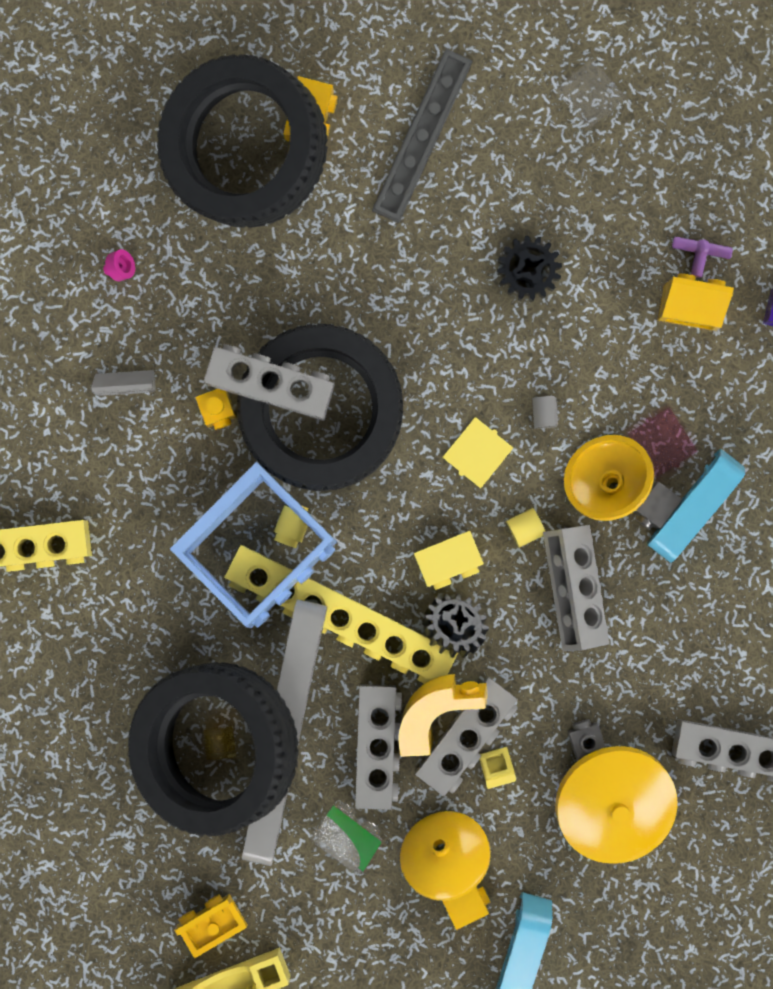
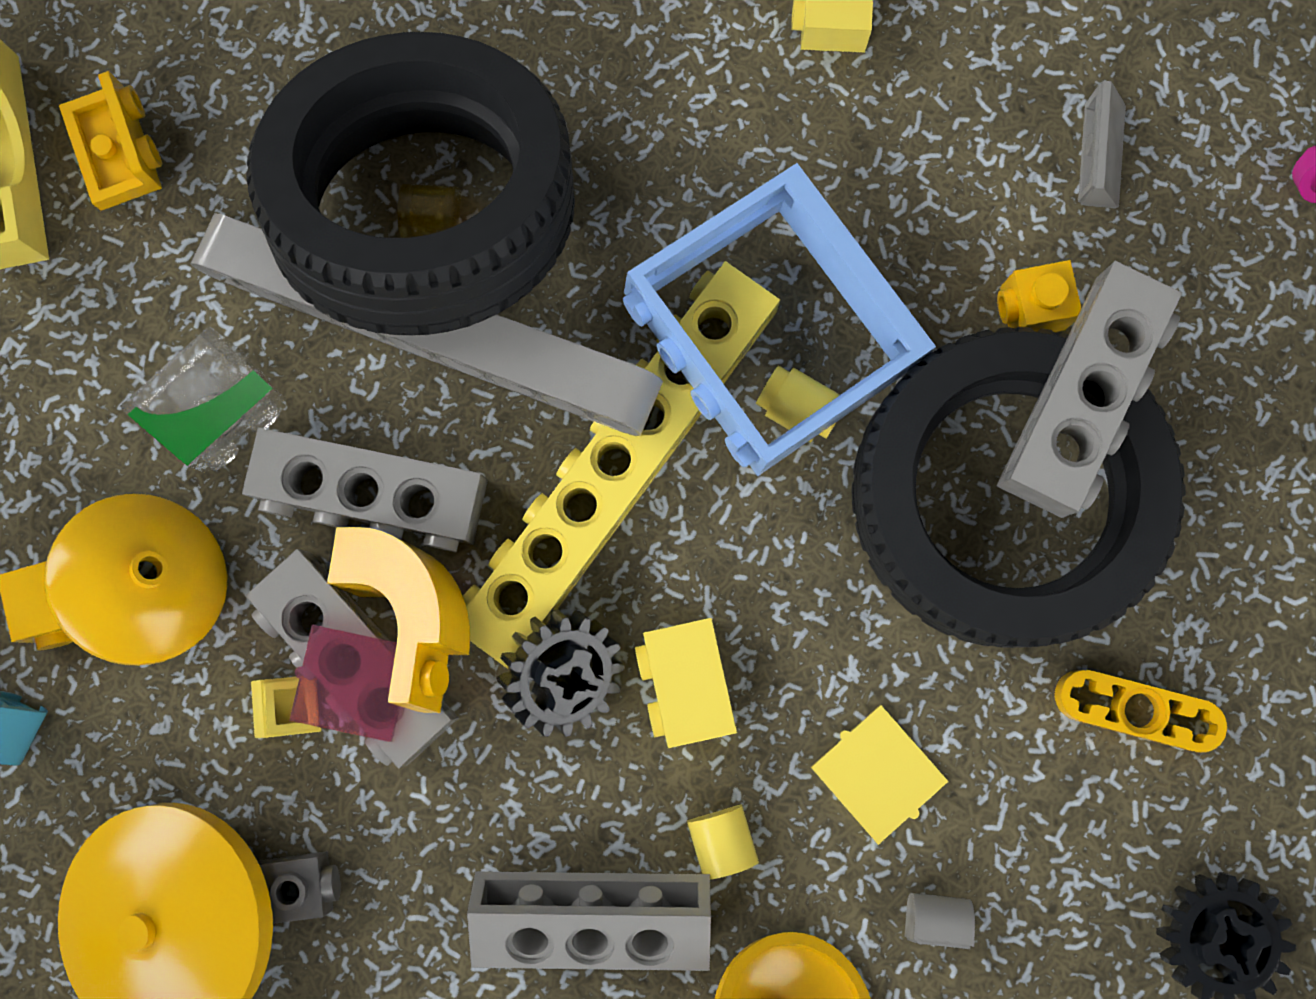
camera: 110 degrees right, 5 degrees down
(416, 302) = (1183, 706): none -> yellow beam
(479, 733) = (346, 684): none -> clear pink piece

